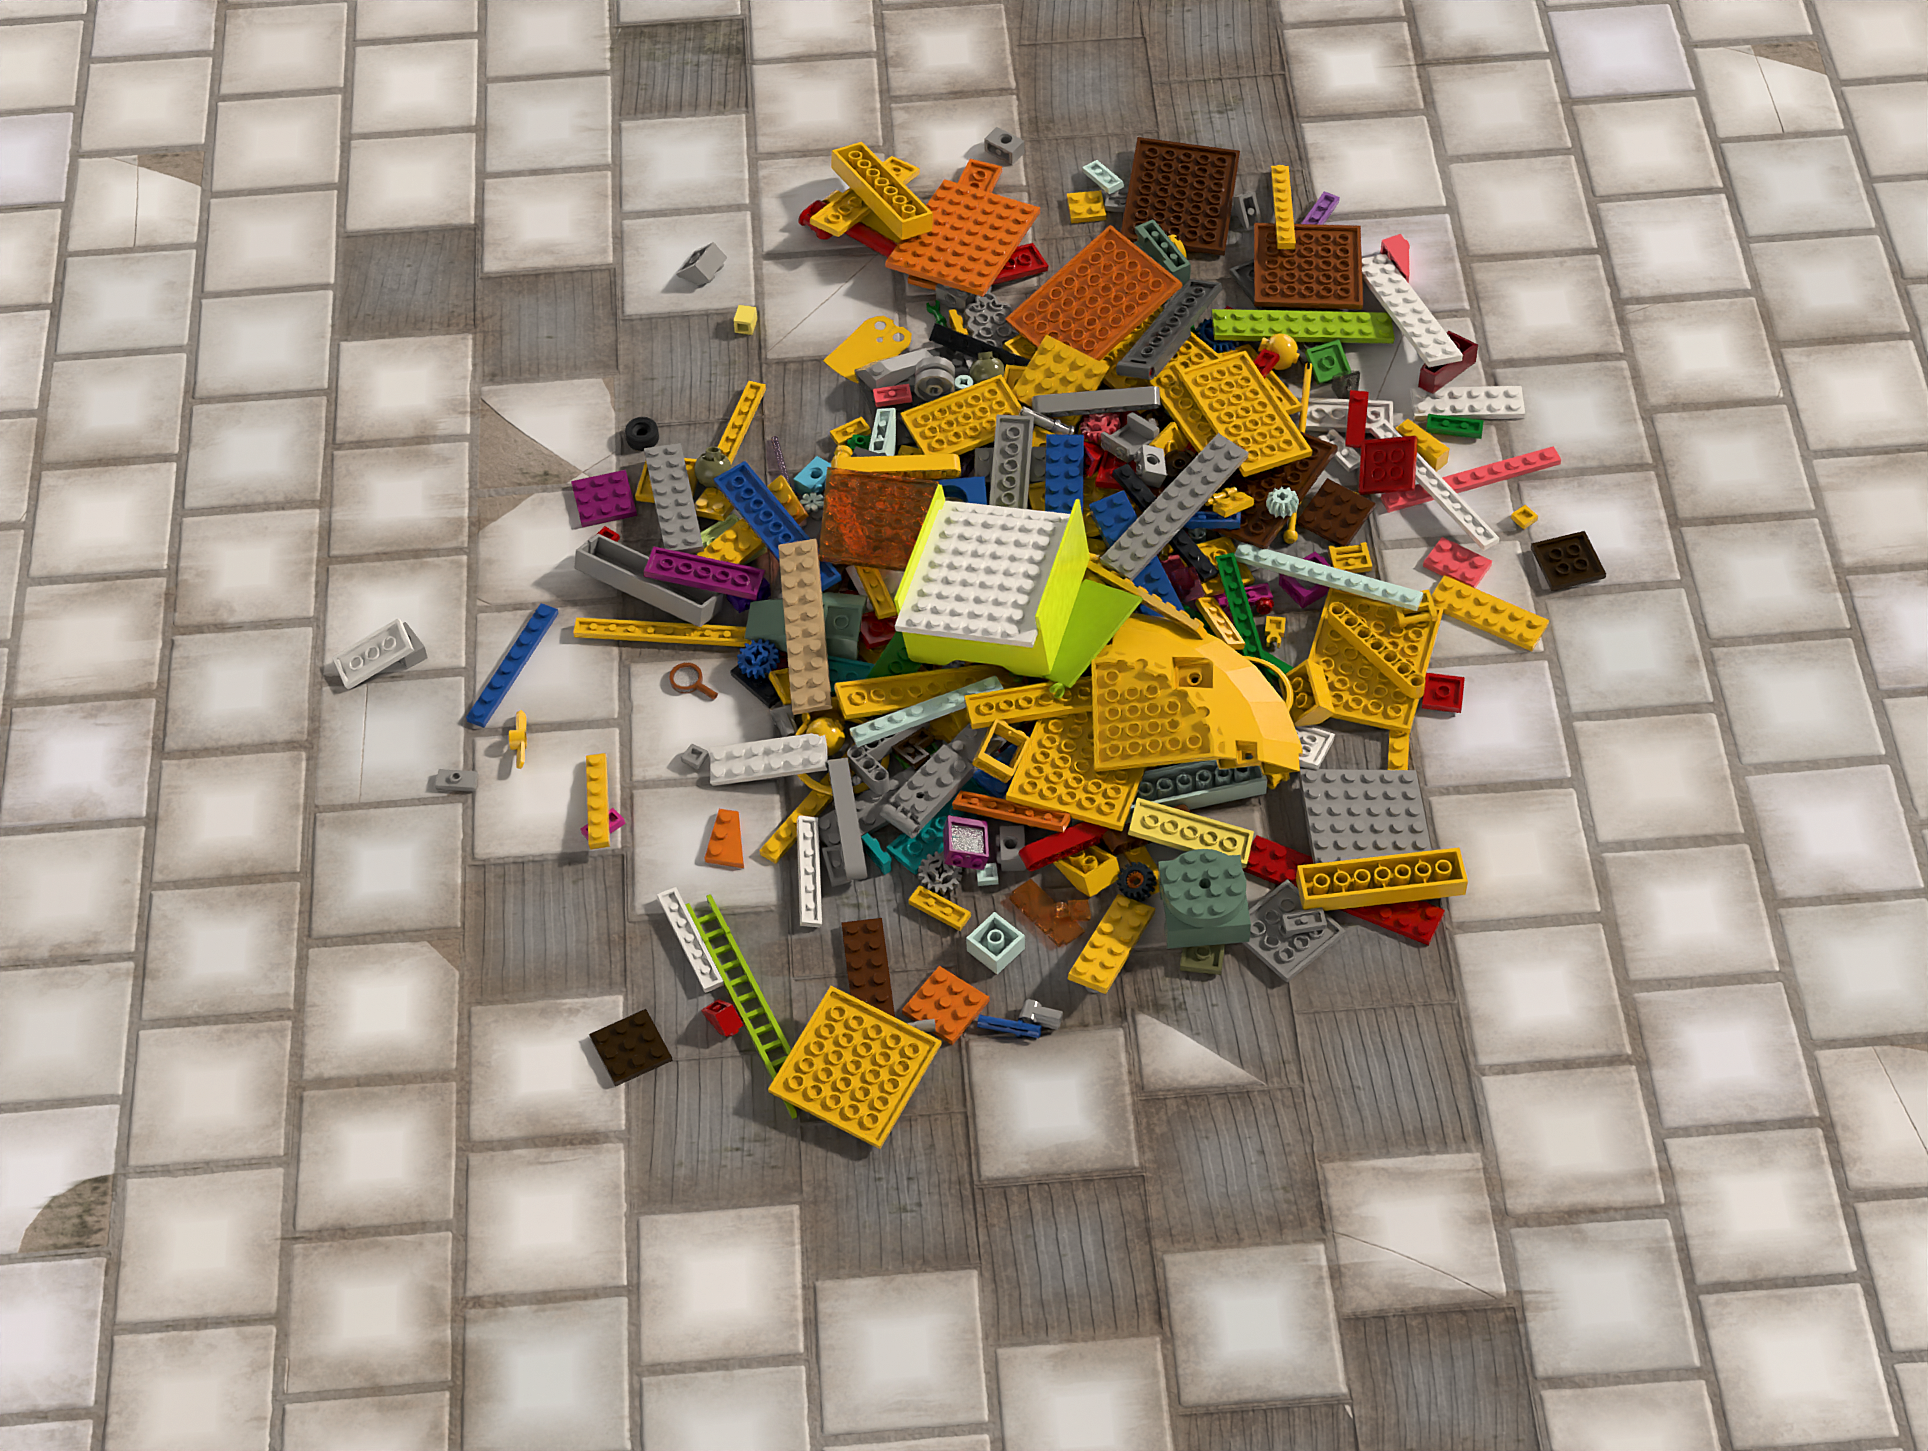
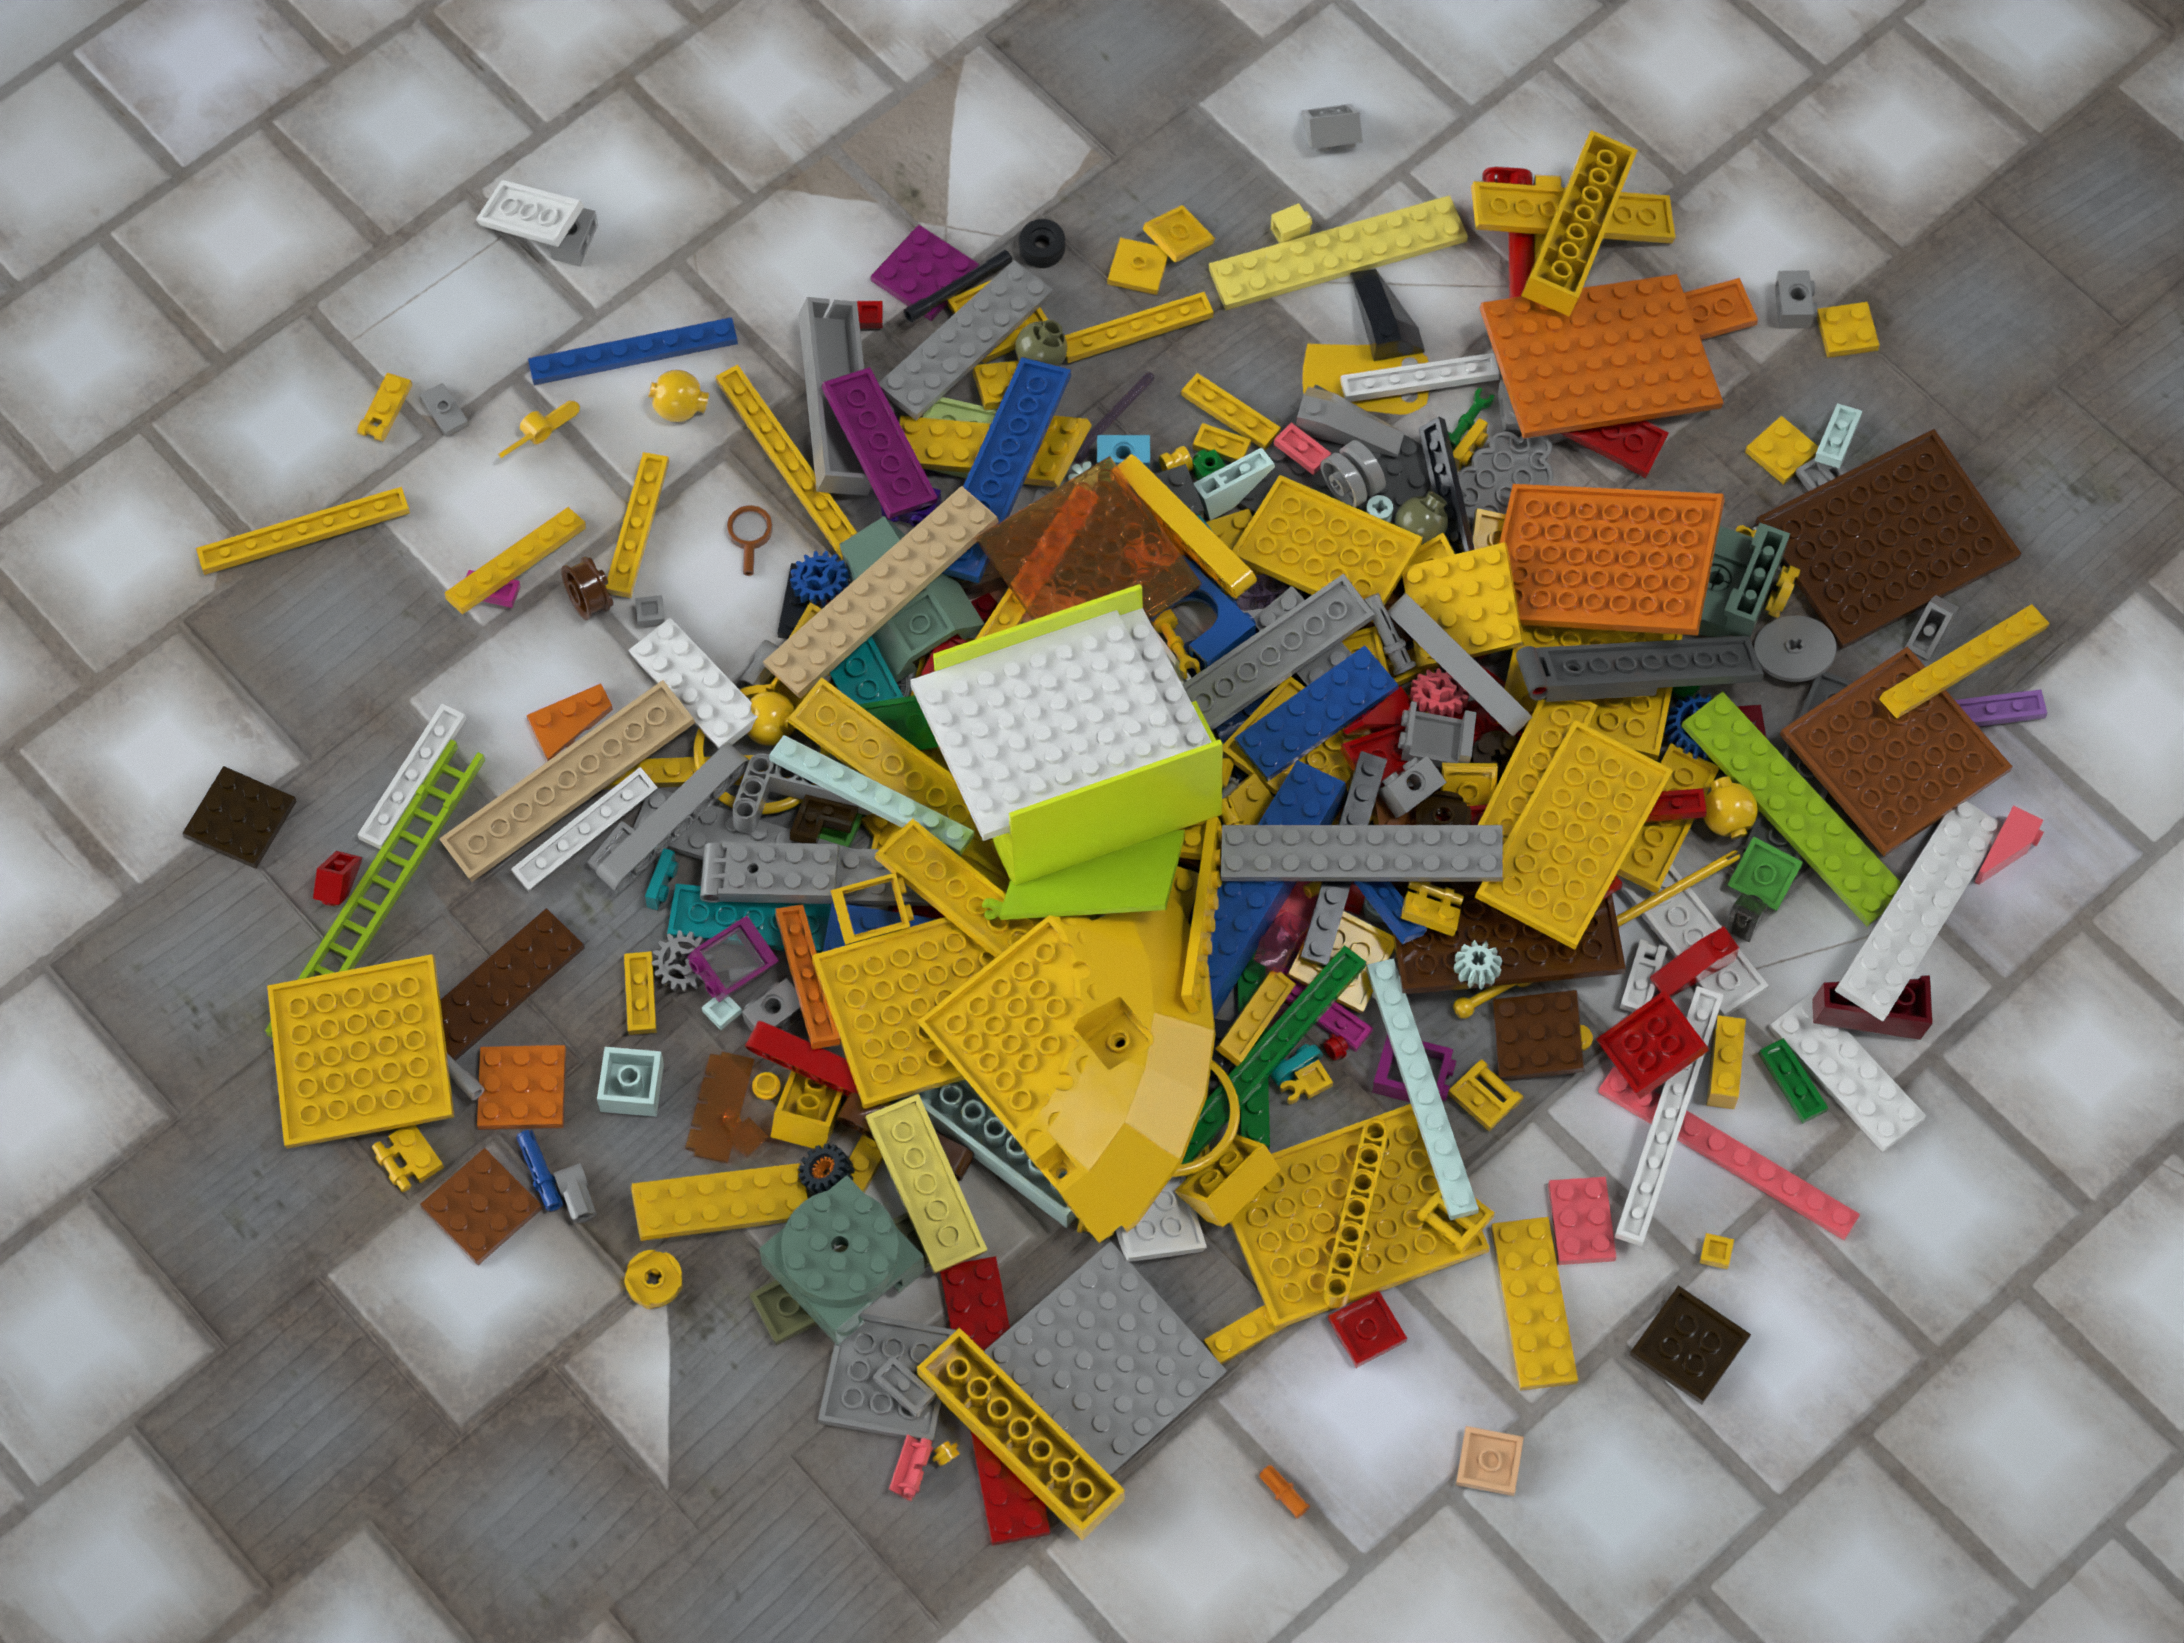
camera: 50 degrees right, 10 degrees up
(424, 808) = (385, 407): none -> yellow plate
(467, 899) = (302, 530): none -> yellow plate
(568, 657) = (677, 396): none -> yellow brick
(630, 506) = (926, 304): none -> black piece
(632, 729) = (637, 524): none -> yellow plate
(654, 773) = (586, 587): none -> reddish brown wheel
(699, 370) = (1178, 233): none -> yellow plate
(700, 401) = (1138, 266): none -> yellow plate
(771, 860) = (567, 780): none -> tan plate
(780, 313) = (1337, 252): none -> light yellow plate
(833, 415) = (1230, 411): none -> yellow plate
(846, 319) = (1385, 320): none -> black wedge
(895, 323) = (1420, 377): none -> white plate
(940, 1085) = (415, 1152): none -> yellow plate
(1005, 1071) = (481, 1206): none -> dark orange plate
(1042, 138) = (1847, 329): none -> yellow plate
(1053, 882) = (766, 1086): none -> yellow plate
(1131, 1020) = (649, 1294): none -> yellow plate
(1218, 263) = (1797, 665): none -> light grey piece
(1259, 620) = (1303, 1056): none -> teal plate
(1357, 930) = (945, 1453): none -> yellow plate
(1359, 957) = (909, 1467): none -> coral hinge
(1507, 788) = (1284, 1491): none -> orange axle
(1564, 686) = (1489, 1461): none -> light nougat plate

